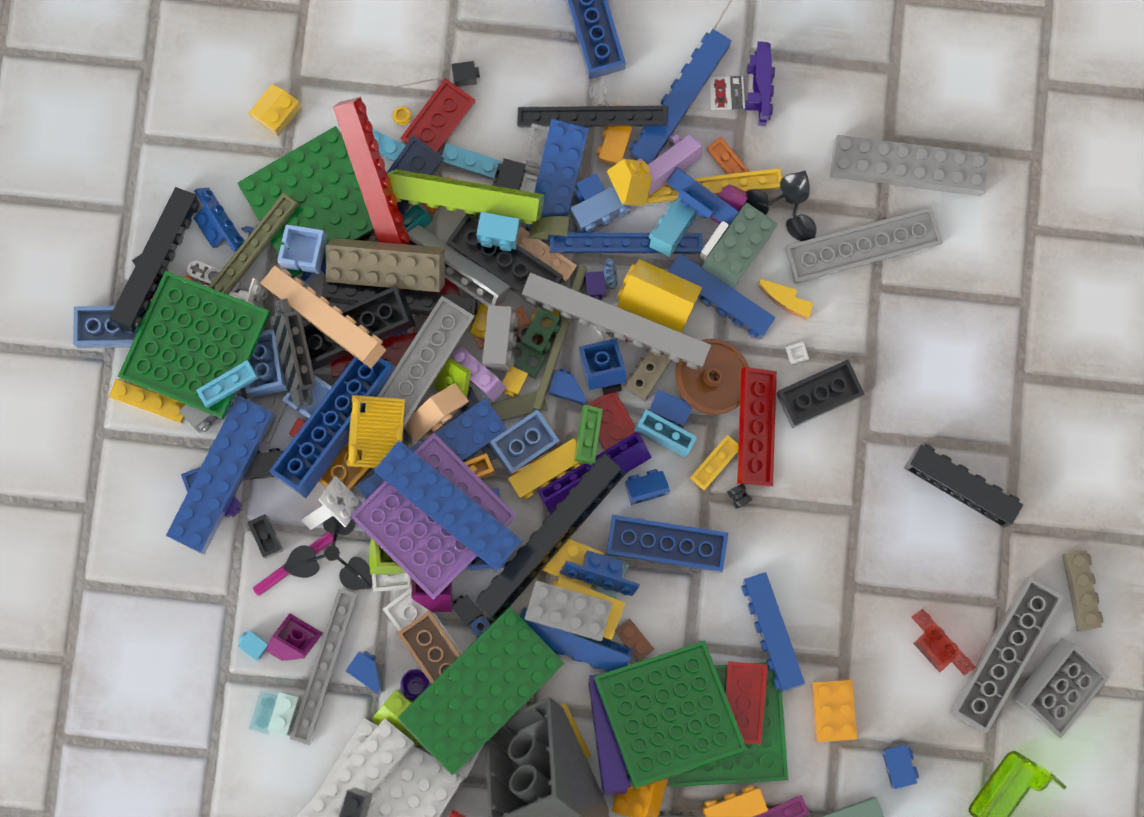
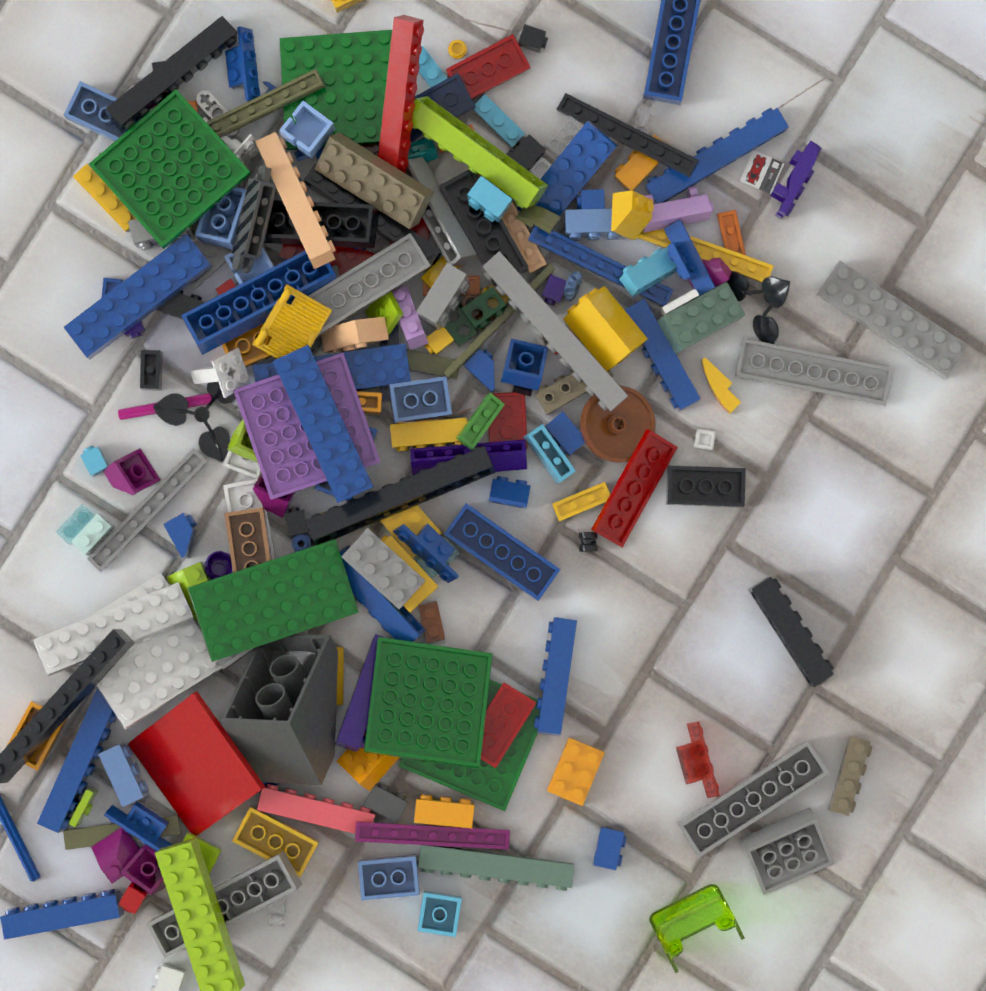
camera: 25 degrees right, 5 degrees up
(227, 384) = (181, 219): medium azure plate -> none

